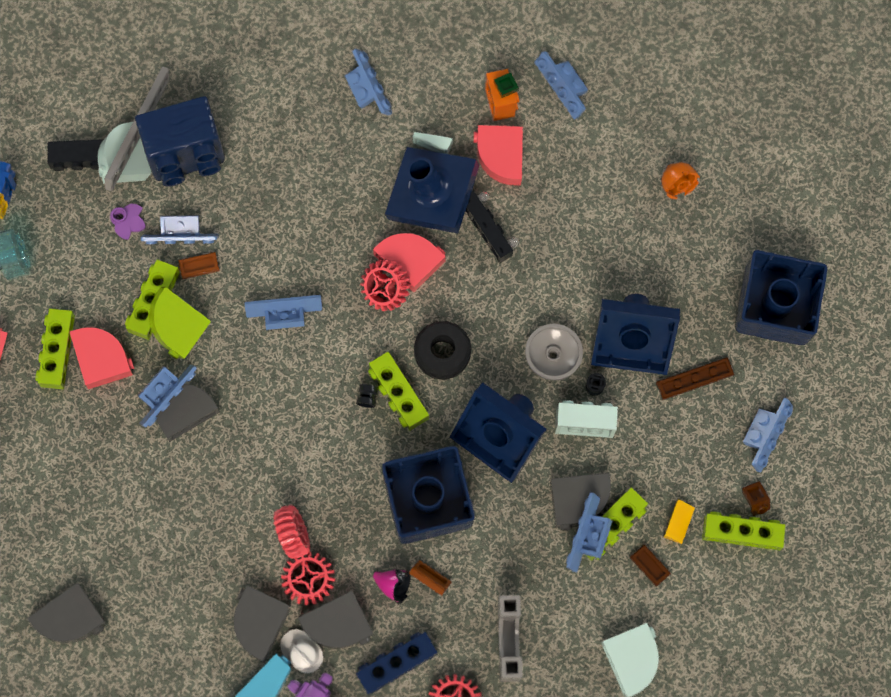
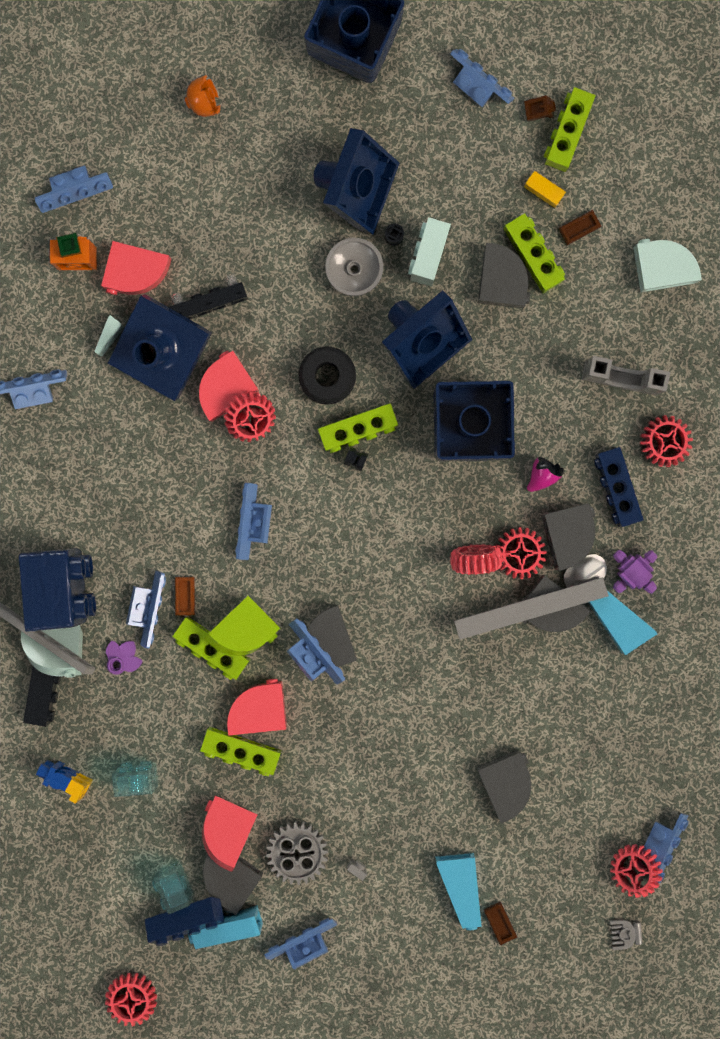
camera: 70 degrees left, 15 degrees up
(253, 598) = (531, 608): none -> light grey tile
(430, 577) = (545, 437): dark orange tile -> none
(590, 534) = (545, 274): medium blue bracket -> none
(695, 378) = (408, 136): reddish brown tile -> none

